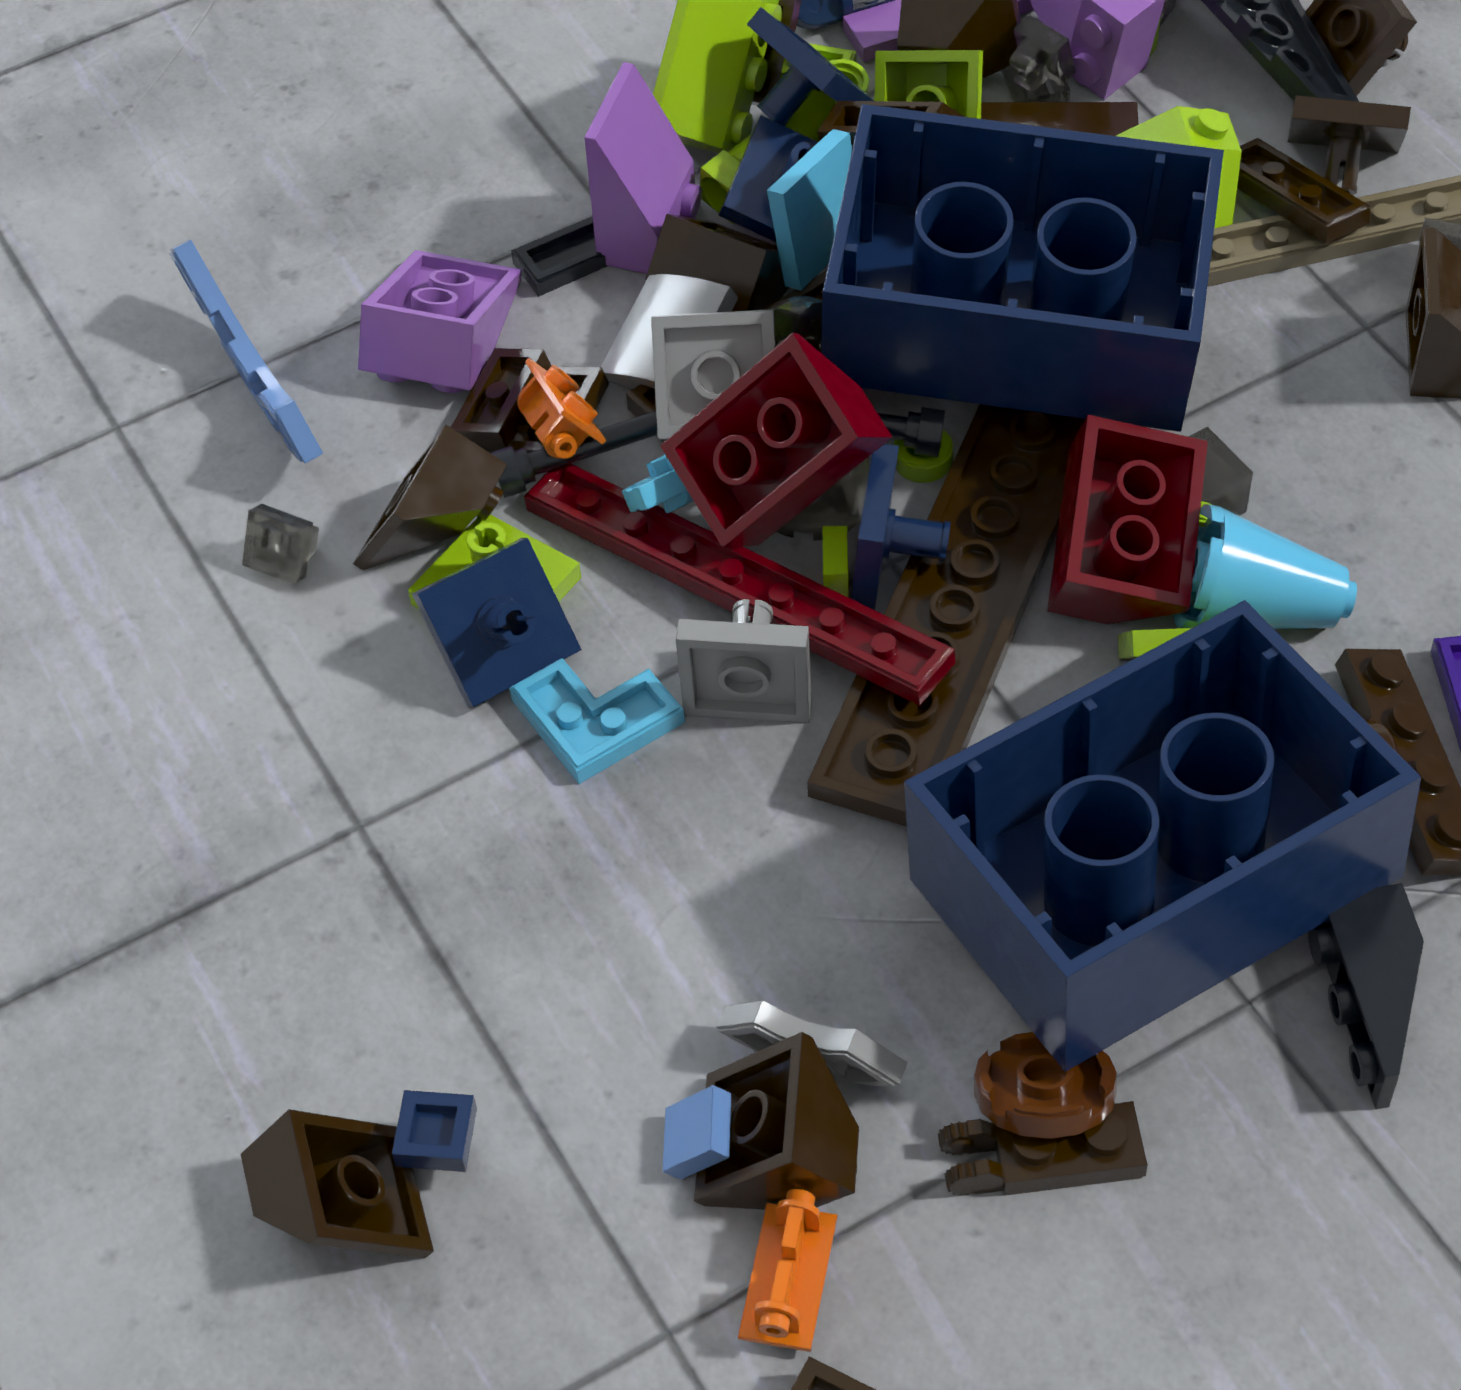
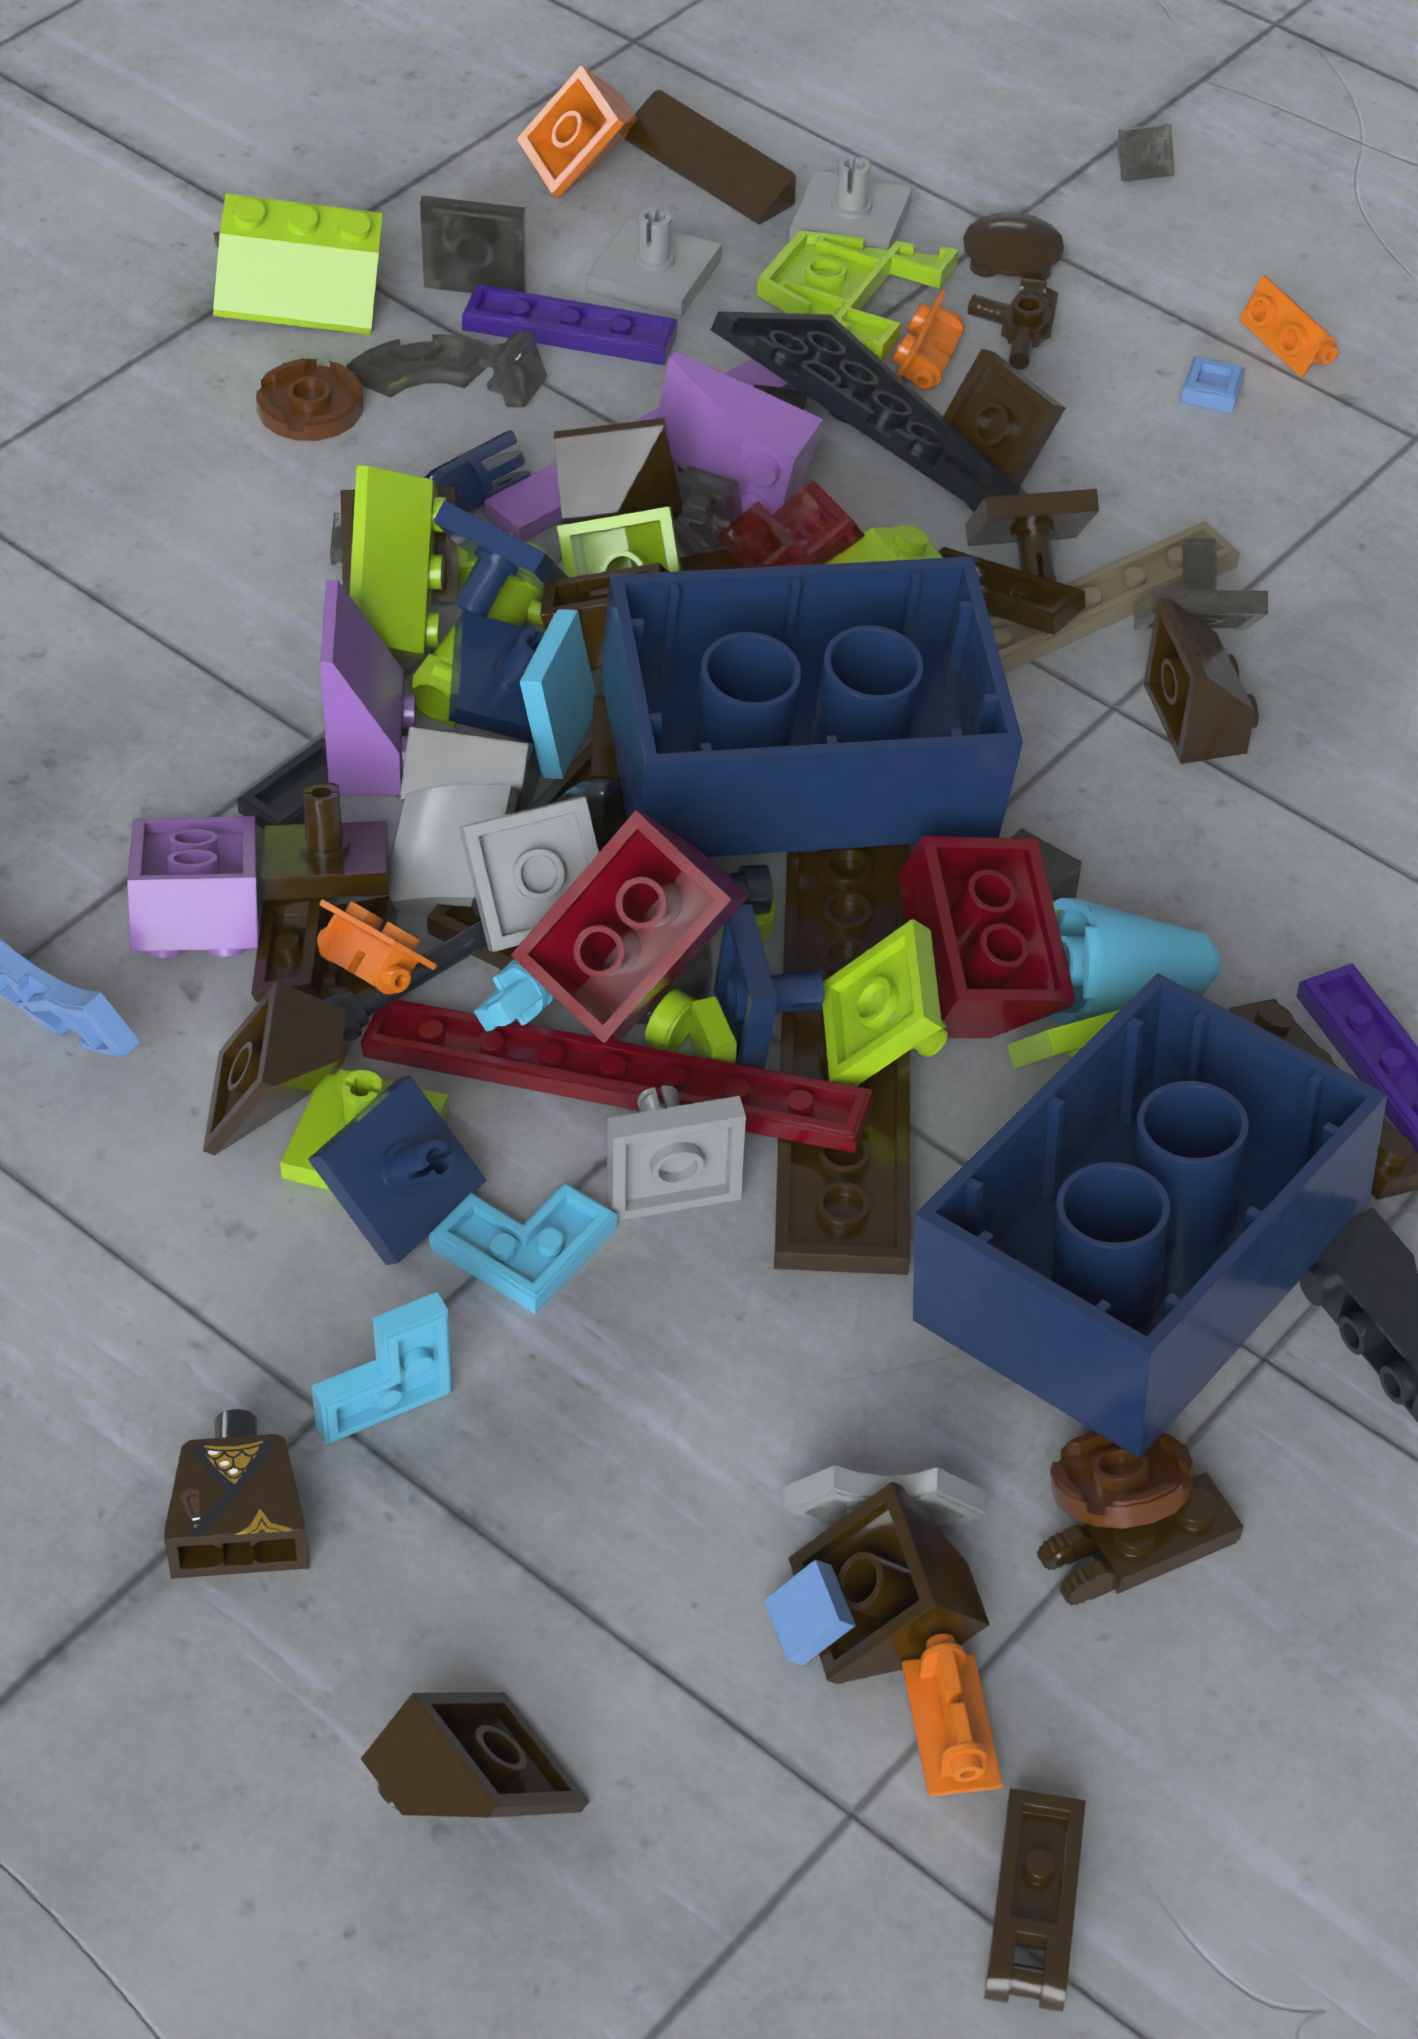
camera: 25 degrees left, 5 degrees down
(237, 890) = (235, 1504): none -> dark brown torso
(279, 543) = (121, 1146): clear smoke tile -> none
(427, 809) = (407, 1372): none -> medium azure tile
(434, 1131) = (552, 1681): dark blue tile -> none
(557, 317) = (324, 854): none -> dark brown tile
(803, 541) = (670, 1022): none -> lime tile
(994, 573) = (883, 1006): none -> lime tile
(1105, 104) = (801, 532): none -> clear red slope

